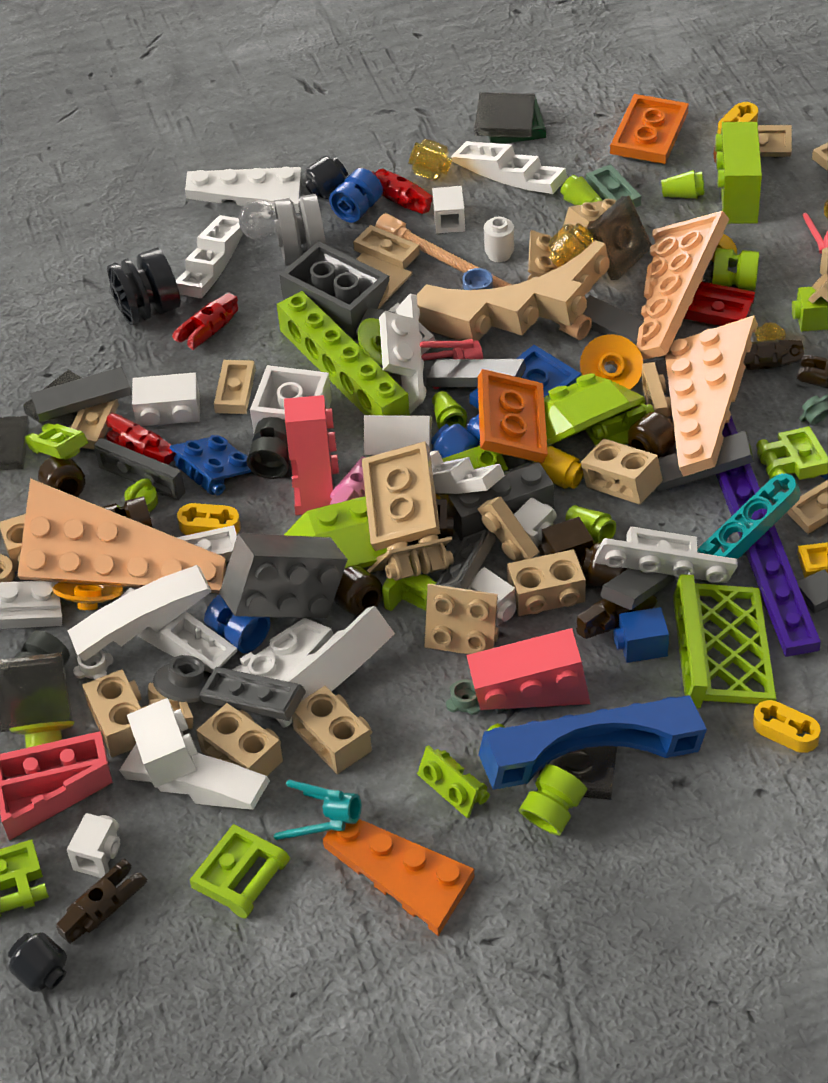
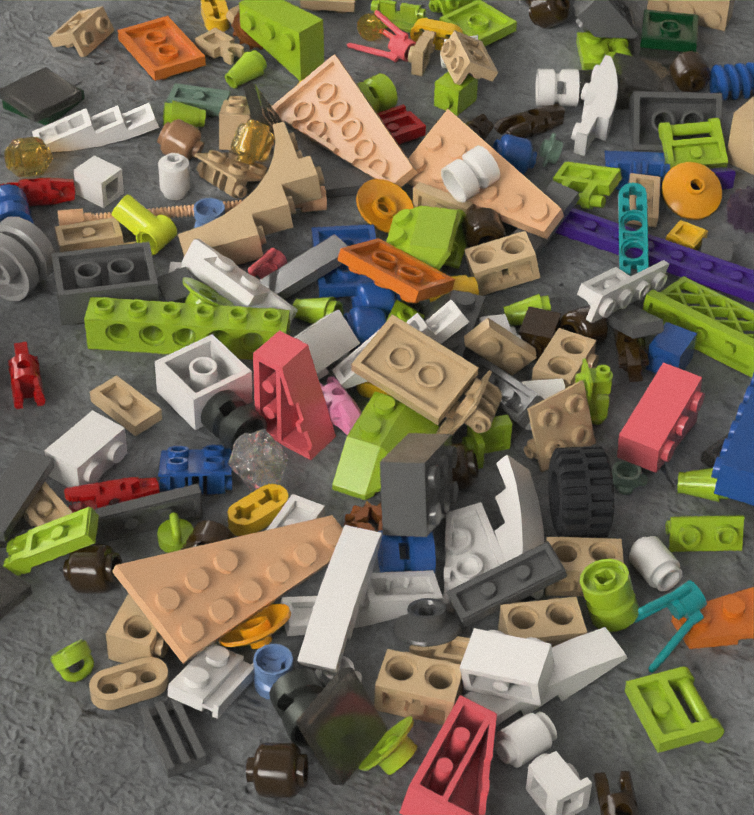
camera: 55 degrees left, 5 degrees down
(57, 621) = (270, 664): none -> medium blue wheel
(123, 800) = (525, 739): none -> white brick
(243, 484) = (258, 459): none -> clear brick
(305, 756) = (609, 594): none -> lime wheel
(380, 769) = (655, 563): none -> white brick
(386, 674) = (581, 492): none -> black tyre
(425, 258) = (145, 225): none -> neon yellow piece
(513, 614) = (597, 384): none -> lime hinge
(546, 213) = (181, 139): none -> medium nougat head
(614, 81) = (83, 31): none -> tan bracket
(677, 379) = (467, 176): none -> white wheel
(694, 152) = (217, 44): none -> tan plate
(776, 392) = (516, 151): none -> blue head

